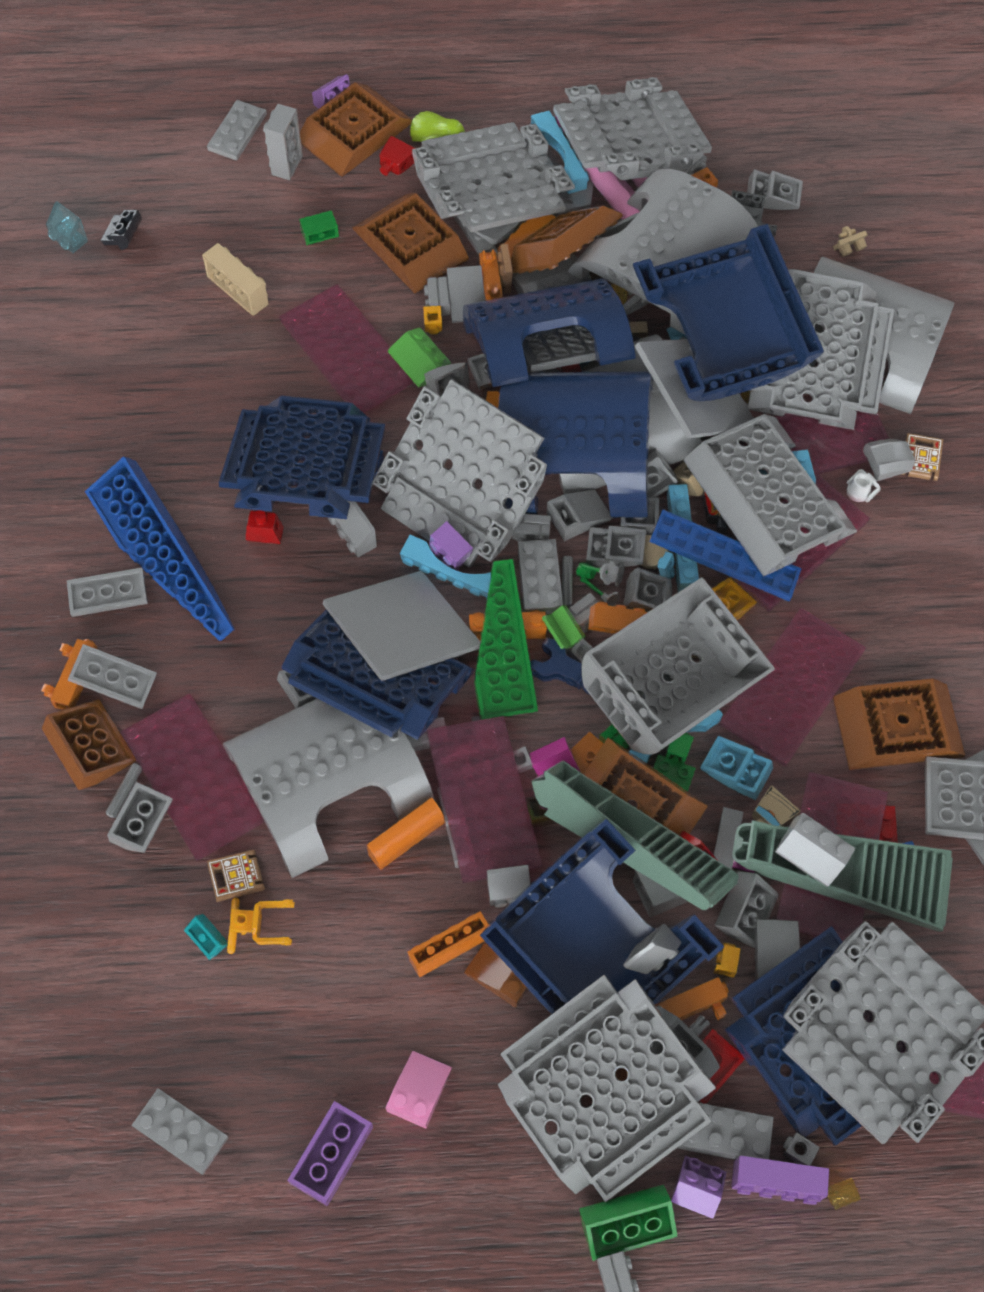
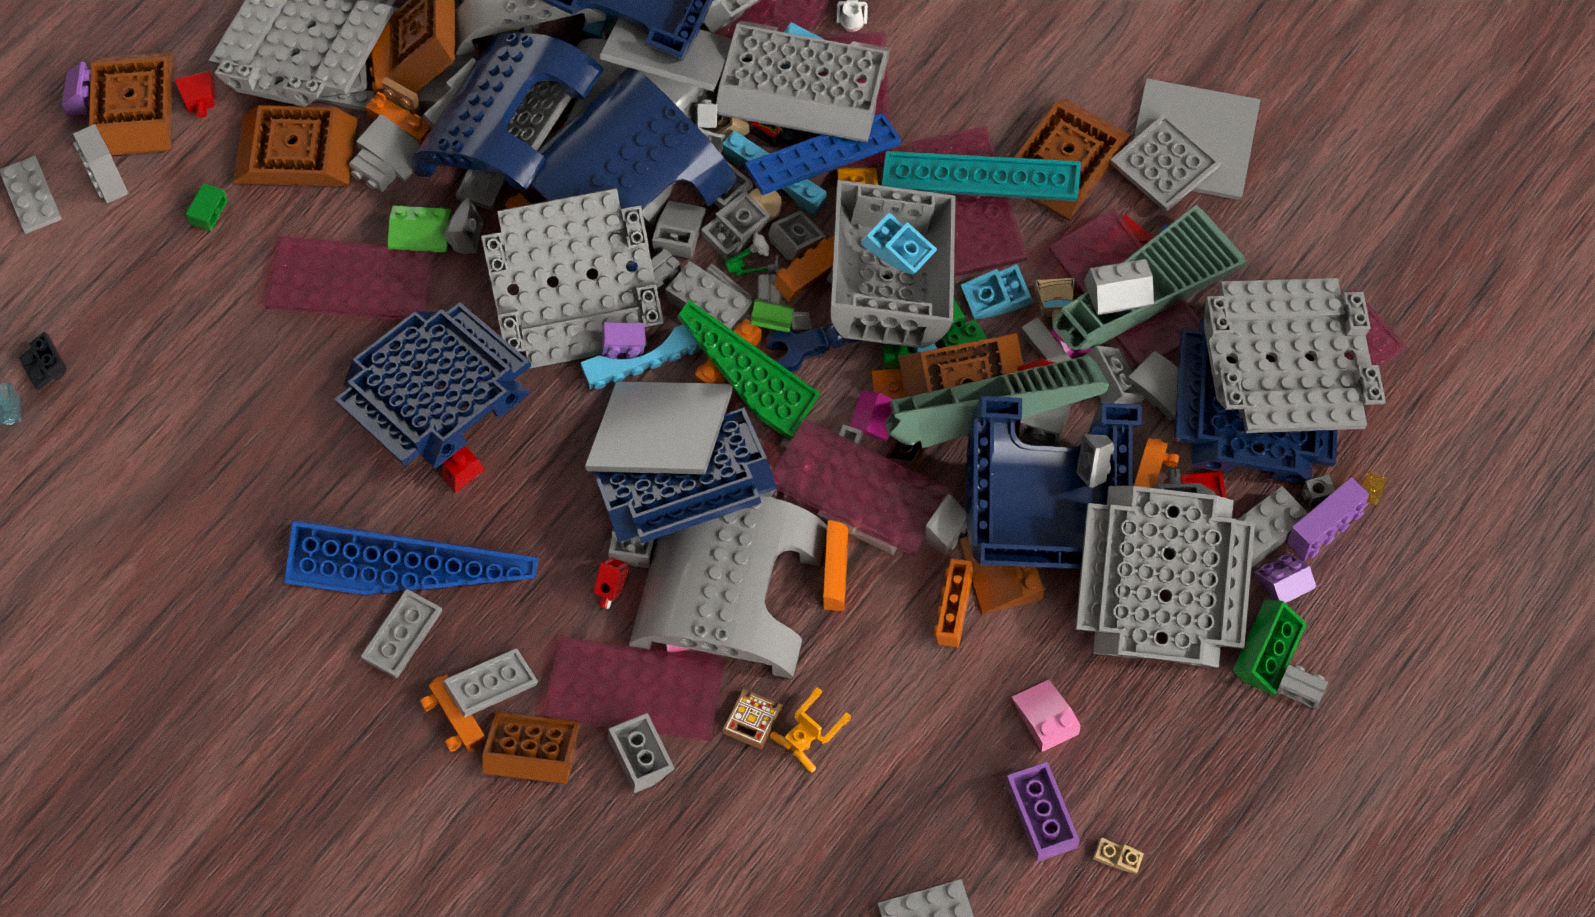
camera: 45 degrees left, 0 degrees up
(123, 791) = (598, 750): light grey axle -> none
(206, 936) = (782, 779): teal slope -> none
(235, 279) = (196, 309): tan brick -> none
(259, 690) = (610, 580): none -> red torso
(346, 1245) = (1118, 856): none -> tan slope
(356, 530) = (540, 403): light grey slope -> none
(431, 125) = (198, 42): lime hair -> none
(432, 323) = (391, 191): light orange brick -> none
(541, 284) = (451, 87): none -> light grey slope
(666, 565) = (788, 202): medium azure plate -> none
(675, 454) = (705, 114): none -> light grey brick
(686, 660) = (898, 245): none -> medium azure slope
(727, 960) = (1147, 426): light orange brick -> none
(819, 678) = (983, 175): none -> teal plate

